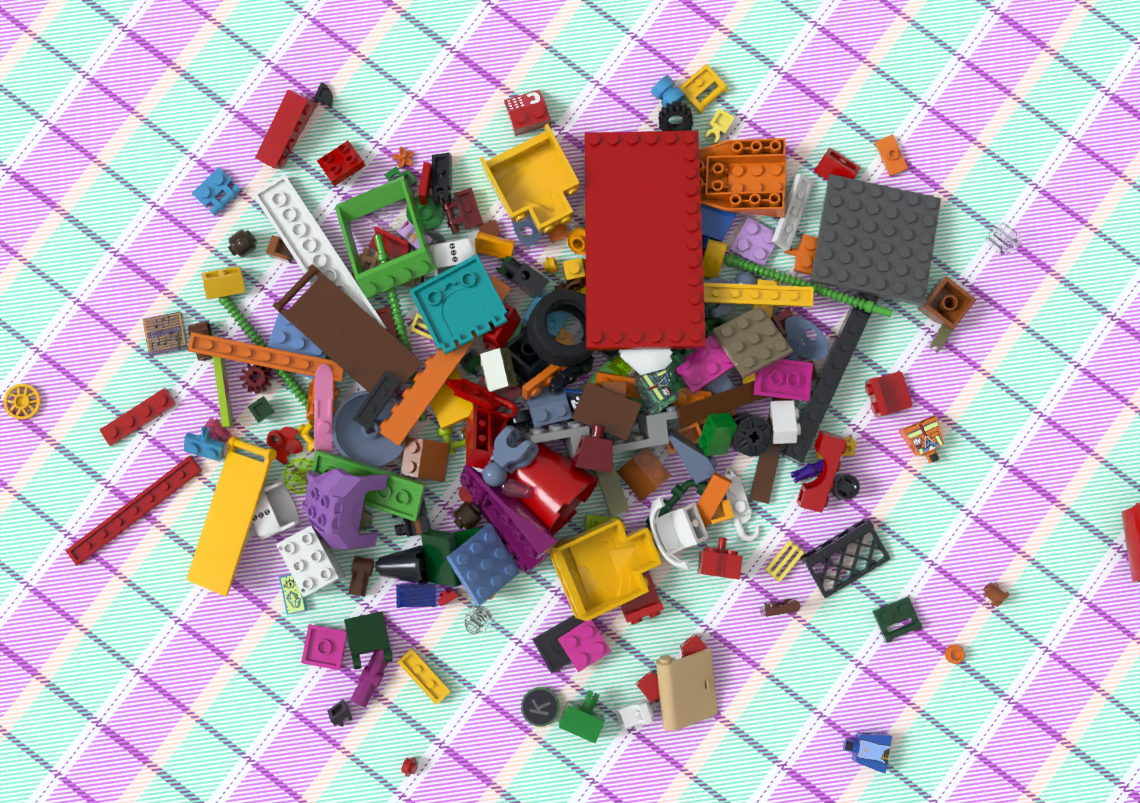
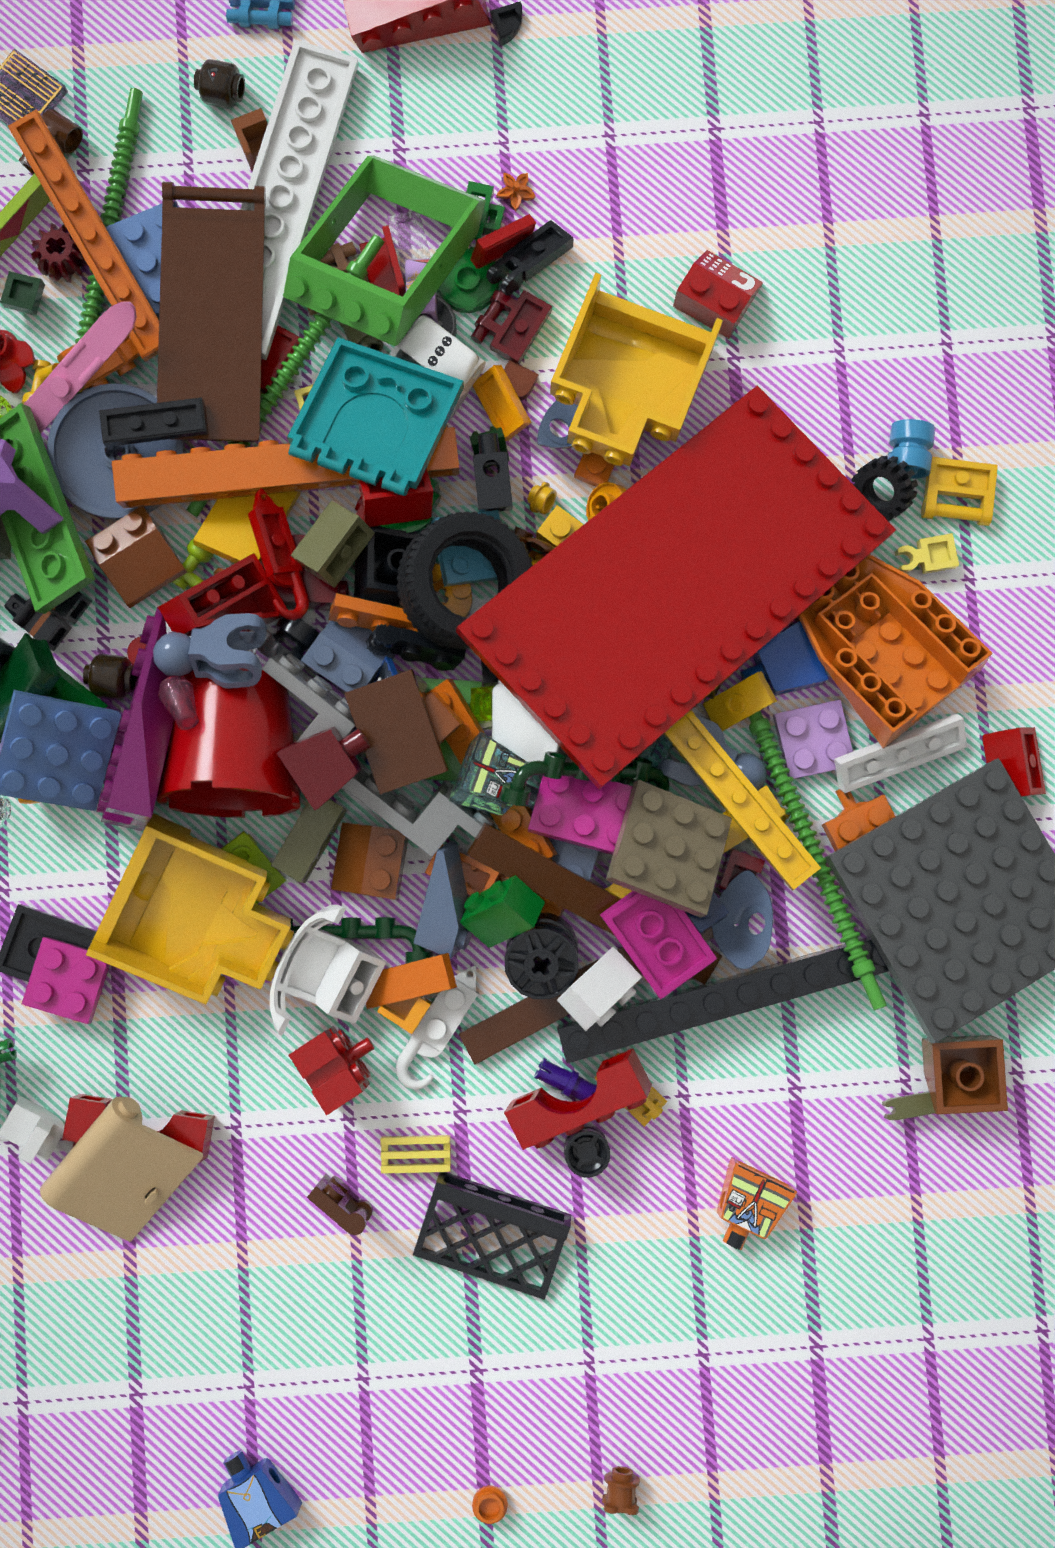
camera: 55 degrees right, 0 degrees up
(223, 282) = (145, 102): yellow hinge -> none
(341, 163) = (434, 114): red plate -> none
(470, 361) = (315, 502): dark green tile -> none
(643, 605) = (189, 1018): red bracket -> none
(888, 394) = (768, 1100): red bracket -> none
(894, 613) = (474, 1370): dark green plate -> none

